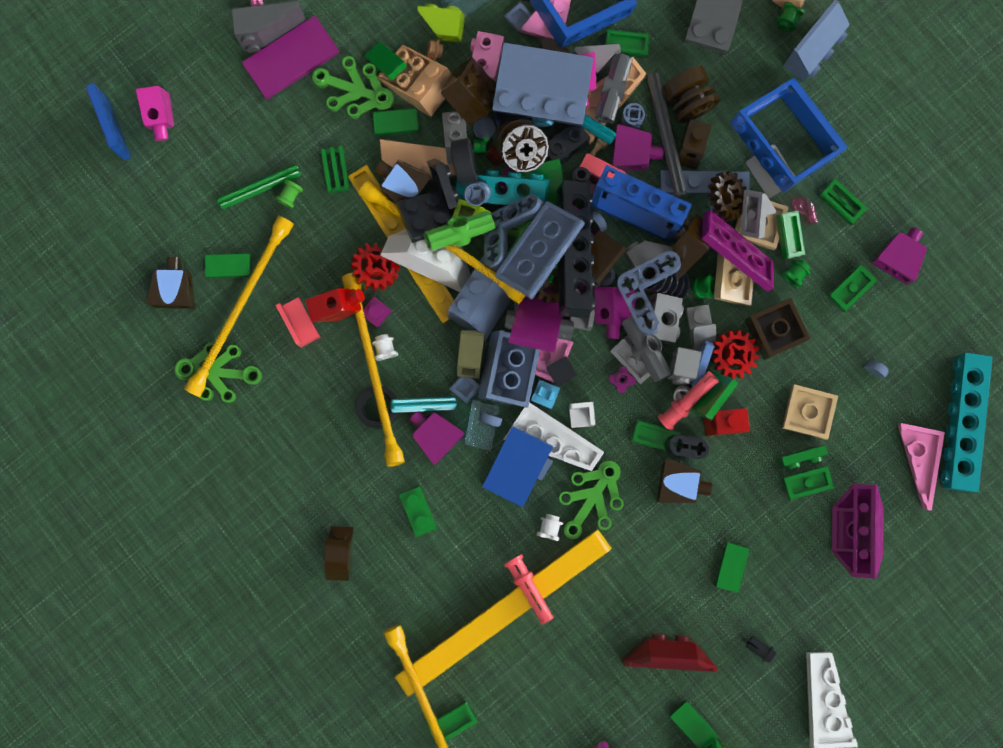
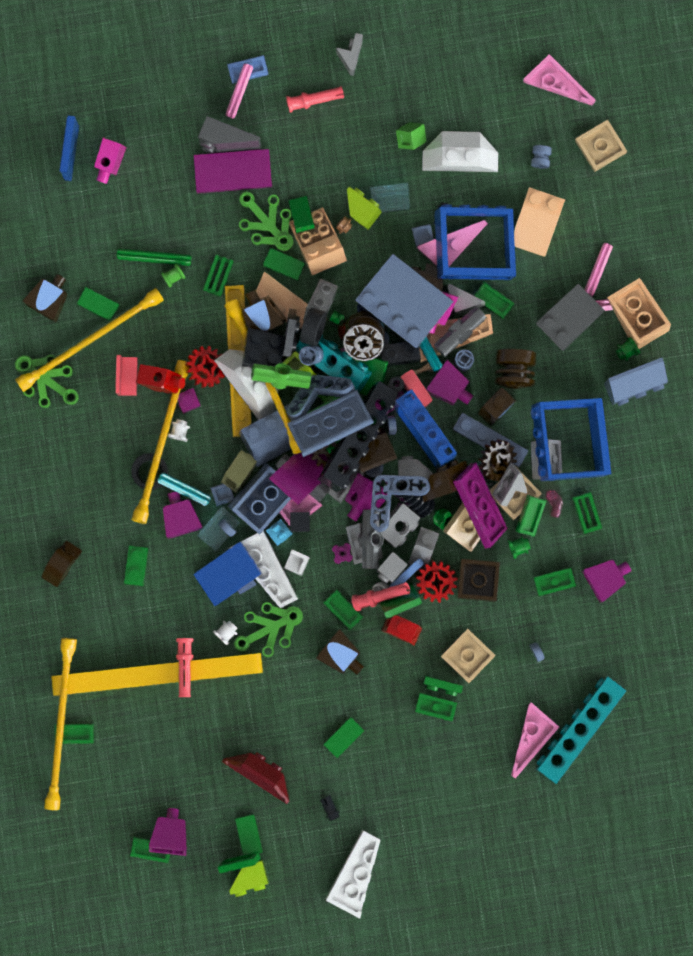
camera: 30 degrees right, 0 degrees up
(470, 91) = (349, 274): dark brown brick -> none
(484, 127) = (347, 306): sand blue tile -> none
(487, 51) = (378, 252): bright pink brick -> none
(666, 134) = (481, 388): dark grey axle -> none
(686, 450) = (363, 626): black beam -> none
(859, 530) = (452, 763): magenta wedge -> none

